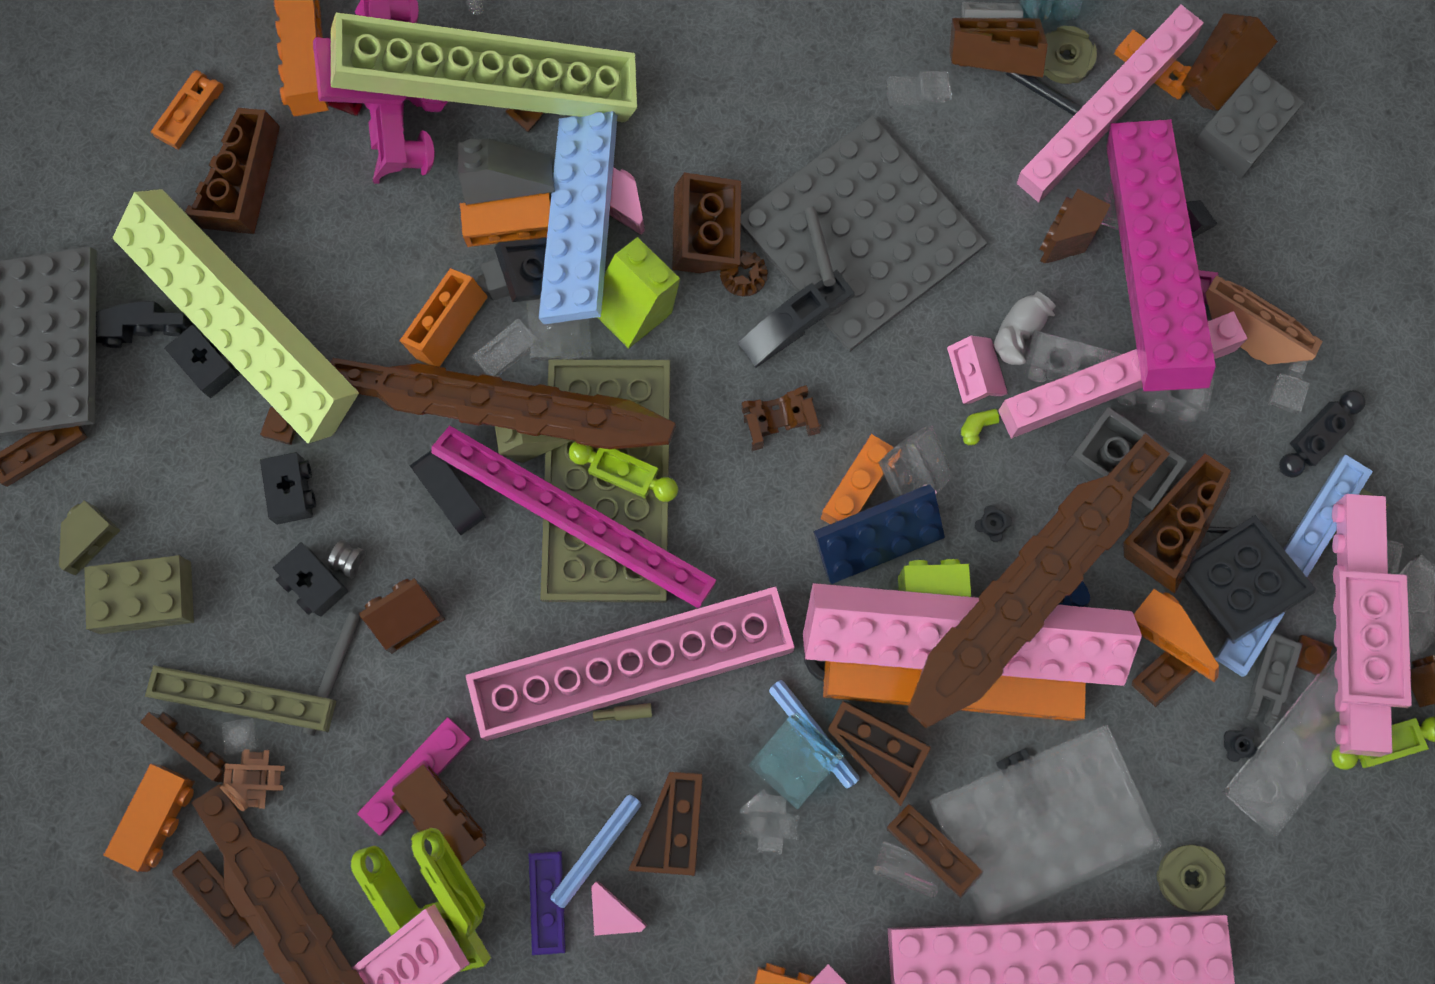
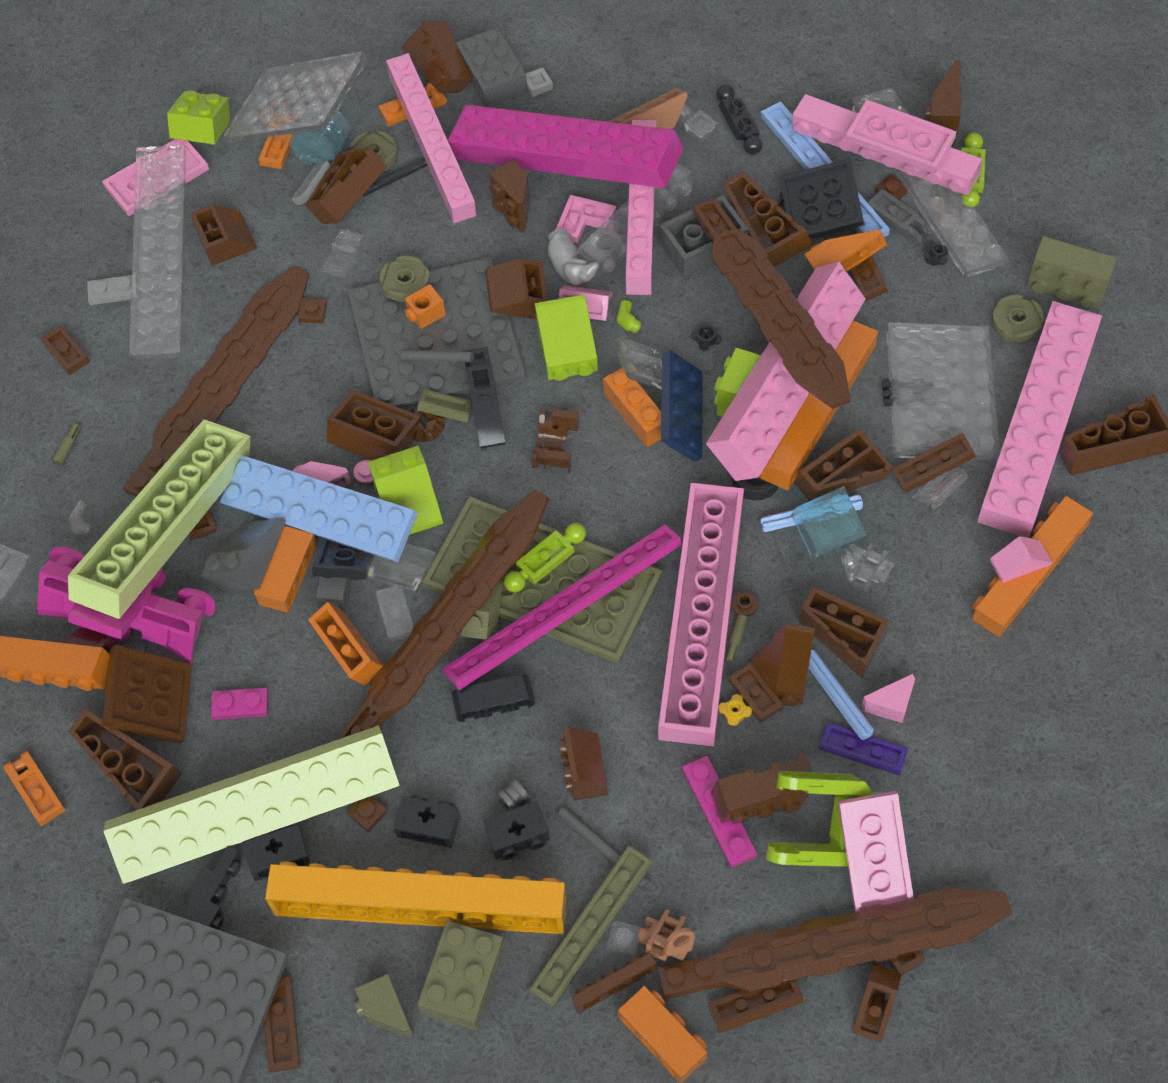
camera: 65 degrees left, 15 degrees down
(195, 520) = (417, 898): none -> light orange brick
(308, 158) = (146, 694): none -> reddish brown plate
(348, 250) = (239, 703): none -> dark pink plate
(526, 747) = (735, 717): none -> yellow plate
(563, 760) = (755, 692): none -> reddish brown plate
(588, 784) = (786, 662): none -> reddish brown wedge
(659, 242) = (362, 472): none -> bright pink plate
(669, 715) = (746, 610): none -> reddish brown plate
(721, 47) = (226, 370): none -> reddish brown plate
(768, 281) = (444, 405): none -> olive tile
(831, 94) = (312, 310): none -> reddish brown plate
(881, 215) = (424, 307): none -> orange brick
(900, 182) = (402, 267): none -> olive plate
(909, 371) = (566, 337): none -> lime slope
(950, 288) = (516, 287): none -> reddish brown slope
(1093, 311) = (583, 212): none -> bright pink plate
(1256, 183) = (538, 82): none -> light grey plate
(1283, 925) = (1071, 272): none -> olive brick

